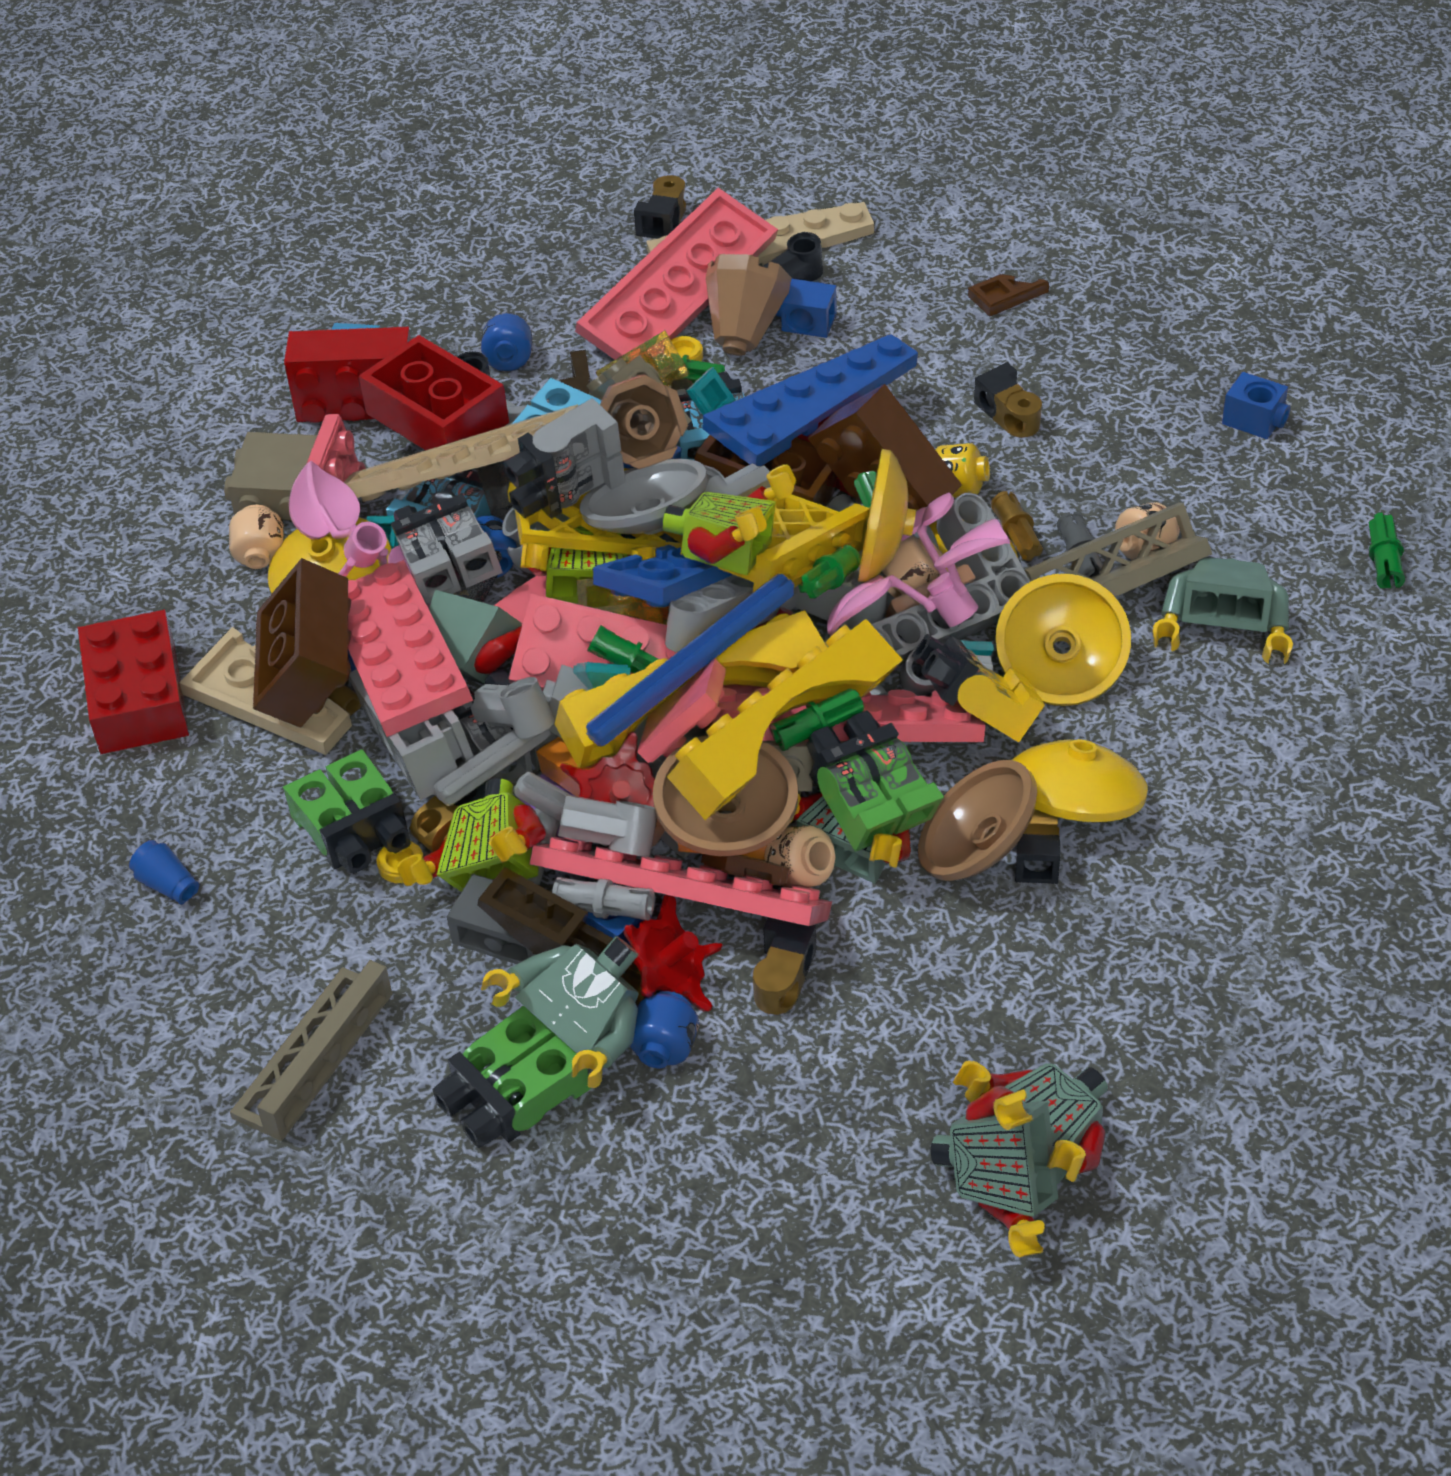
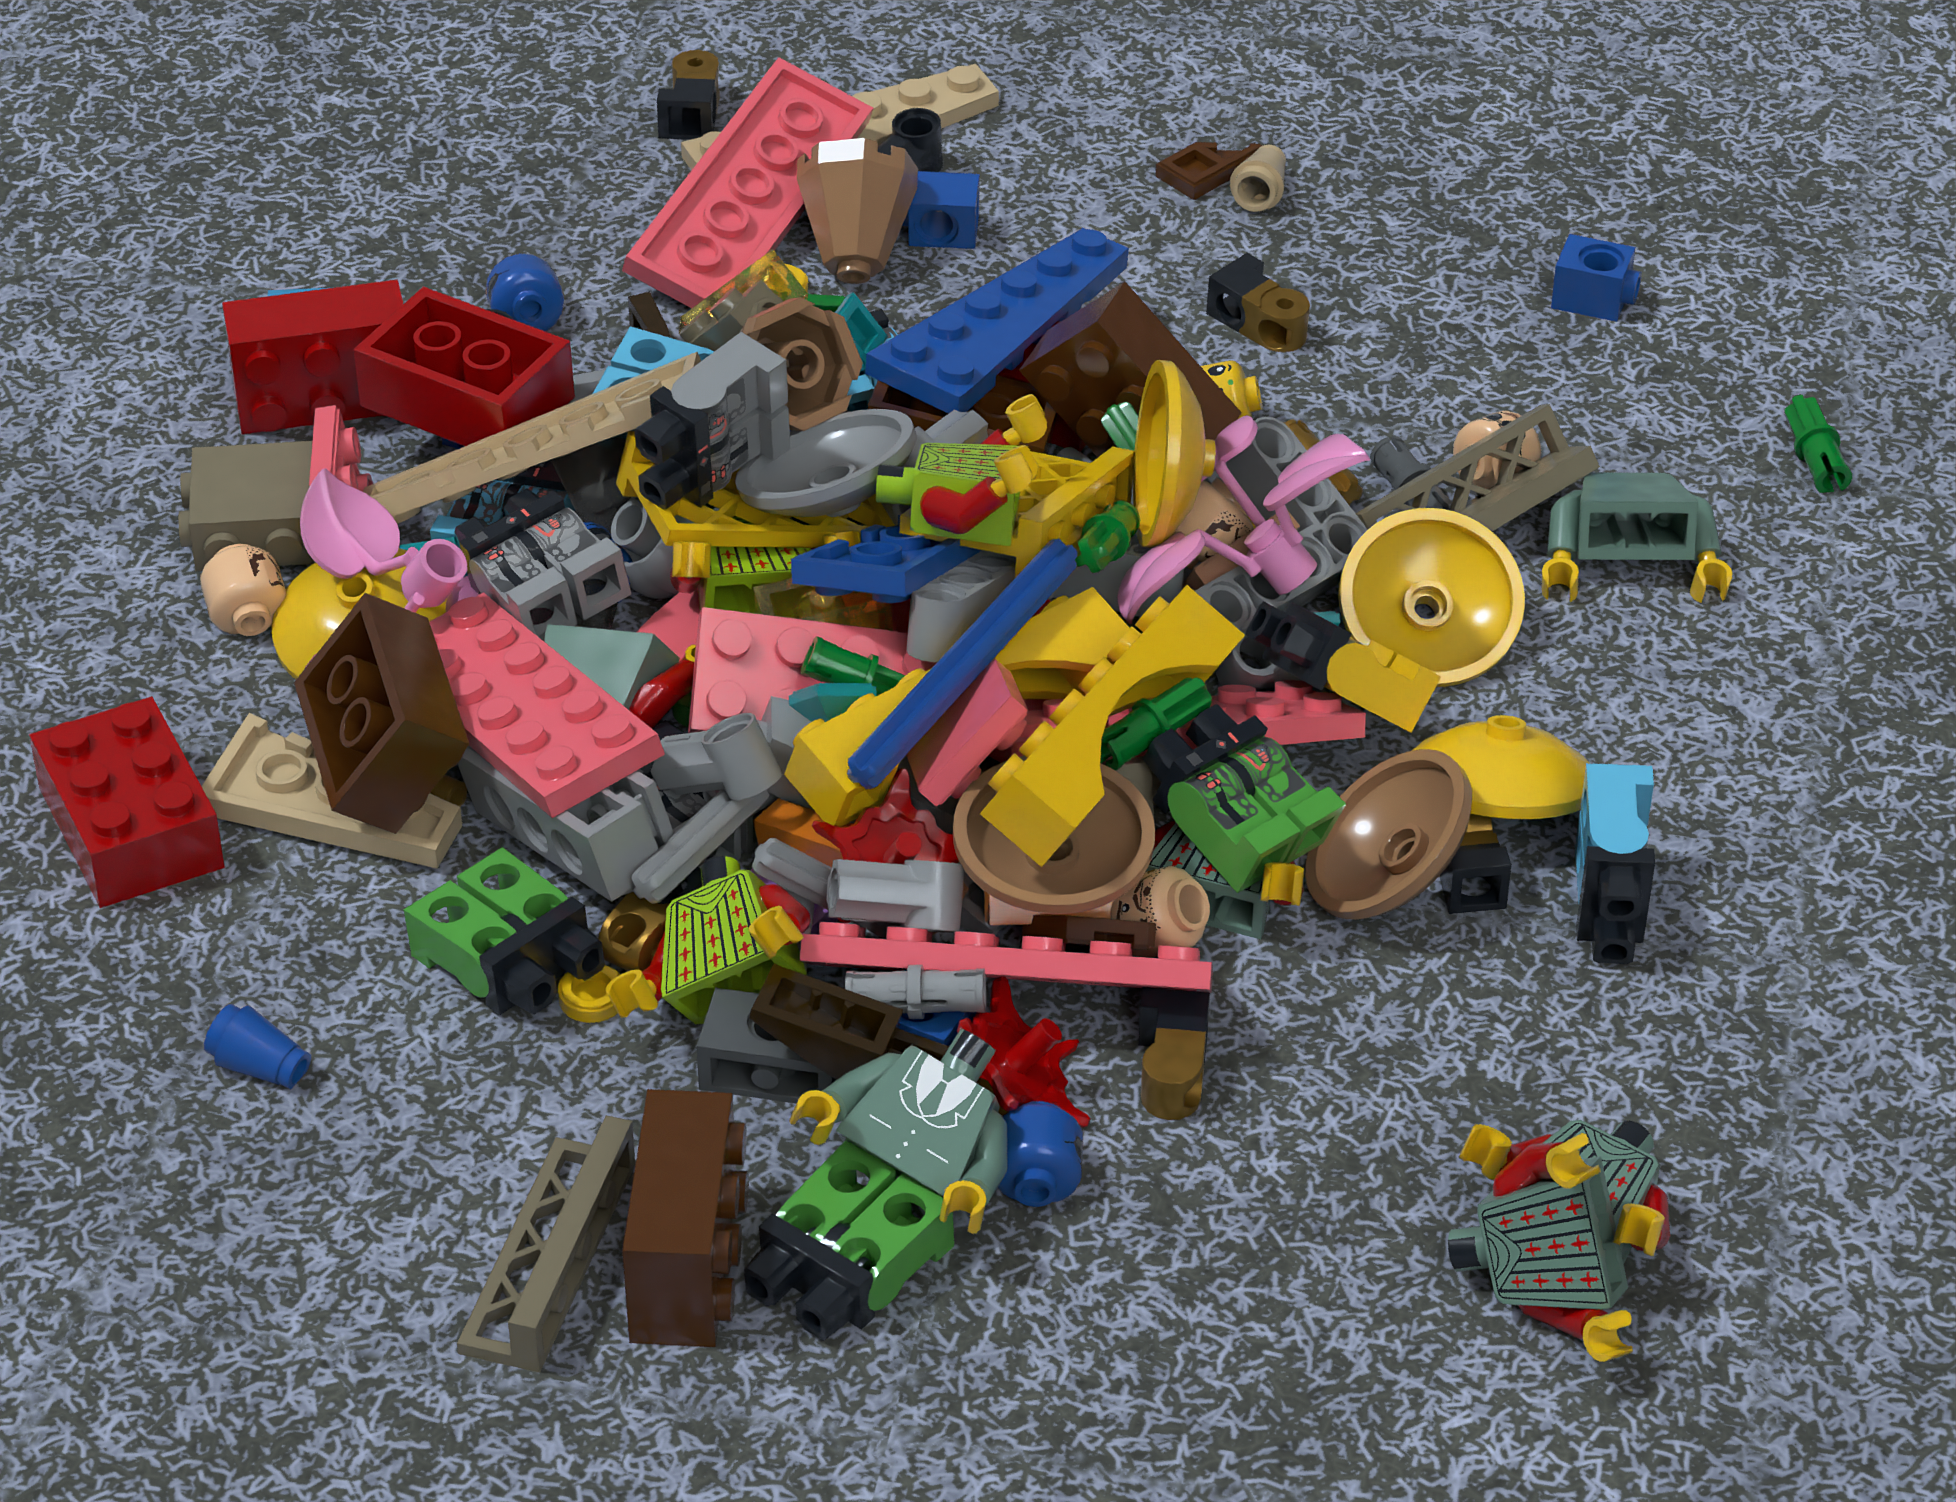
camera: 15 degrees left, 5 degrees down
(397, 1046) = (682, 1217): none -> reddish brown brick
(1037, 306) = (1258, 178): none -> tan cone
(1133, 869) = (1614, 860): none -> hips

